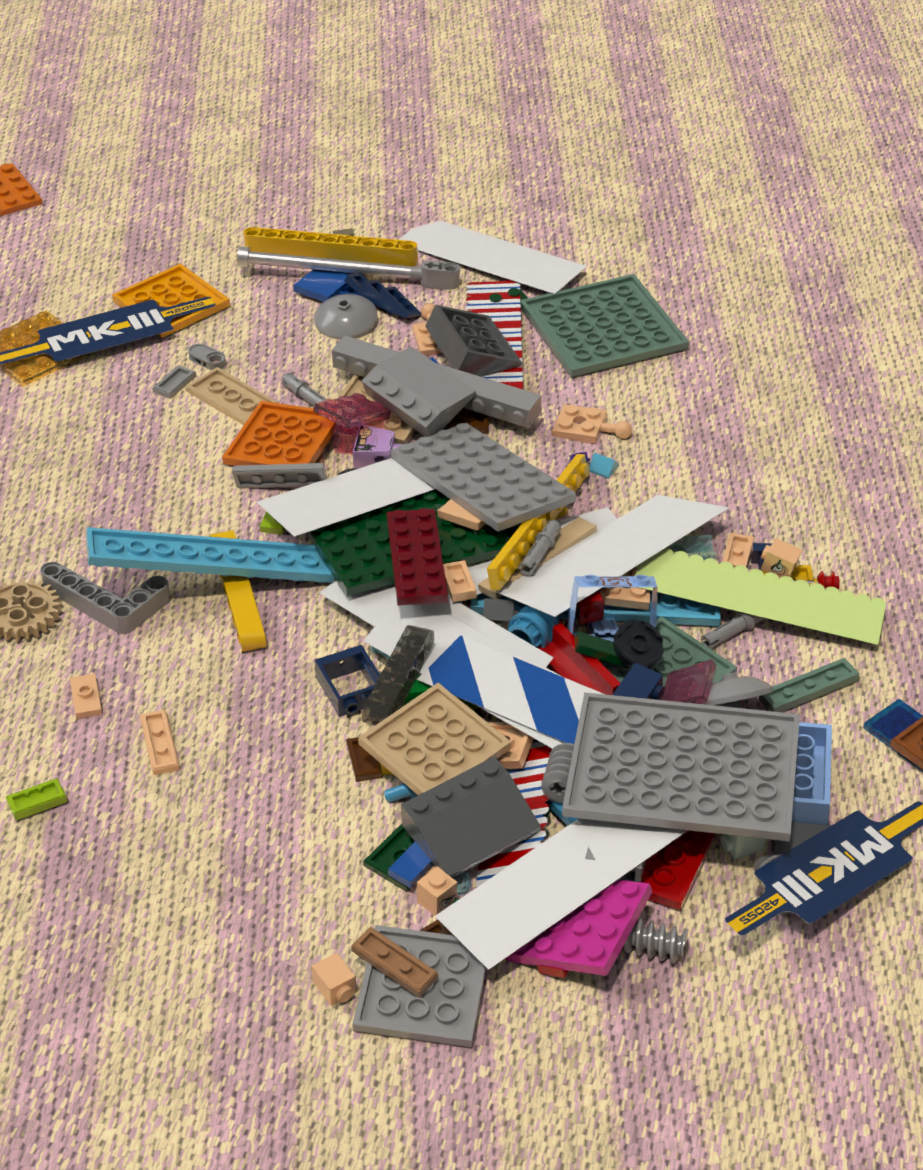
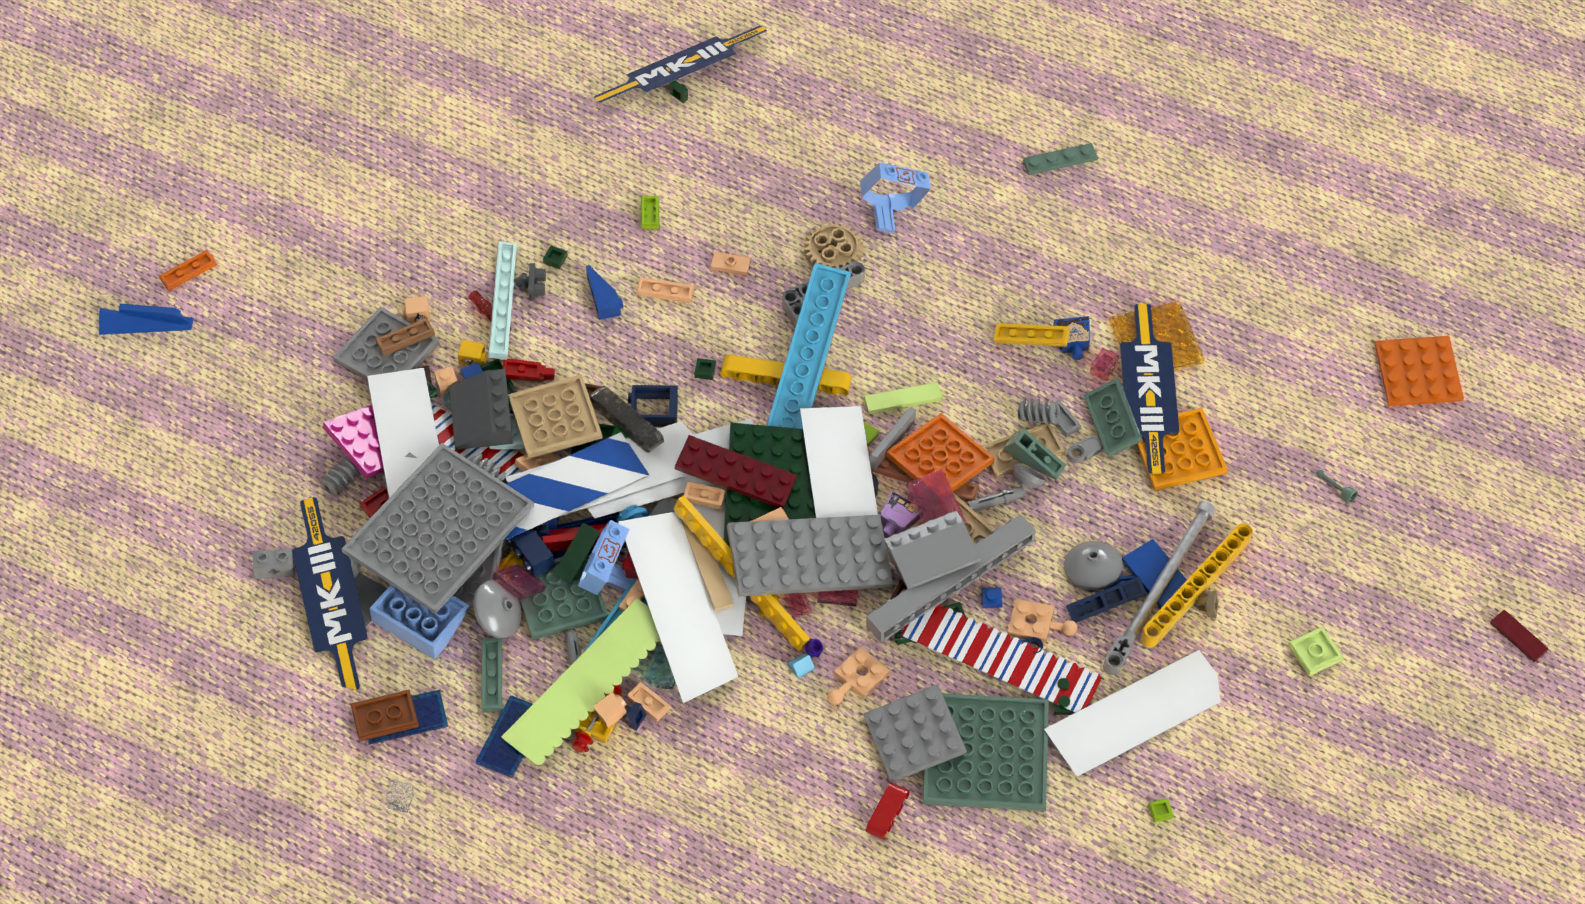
camera: 115 degrees right, 15 degrees up
(61, 395) = (1078, 337): none -> torso
(80, 416) = (1031, 334): none -> yellow plate
(89, 366) = (1104, 364): none -> clear pink brick
(160, 339) = (1113, 417): none -> sand green plate
(161, 867) = (555, 257): none -> dark green plate
(164, 198) = (1346, 493): none -> sand green hinge
(182, 387) = (1038, 412): none -> light grey piece
(205, 789) = (604, 295): none -> blue slope
(213, 495) = (903, 398): none -> yellowish green tile
(218, 873) = (534, 288): none -> dark grey hips
(240, 376) = (1034, 454): none -> sand green slope
(259, 95) = (1519, 635): none -> dark red tile
(266, 659) = (705, 369): none -> dark green plate
(266, 887) = (502, 300): none -> light aqua tile
(270, 375) = (1027, 477): none -> light grey piece
(287, 908) = (482, 305): none -> clear red pin
(351, 180) = (1315, 651): none -> yellowish green plate
(369, 821) = (527, 370): none -> red hinge
(374, 887) = (472, 352): none -> yellow brick
(470, 341) = (990, 627): dark grey slope -> none
(543, 542) = (709, 559): light grey pin -> none
(577, 223) = (1160, 810): none -> lime tile
(623, 364) = (914, 733): none -> light grey plate
(638, 643) = (568, 565): black tile -> none
(717, 360) = (886, 810): none -> red beam
(834, 951) = (273, 564): none -> light grey brick
(895, 647) = (498, 753): none -> clear blue tile

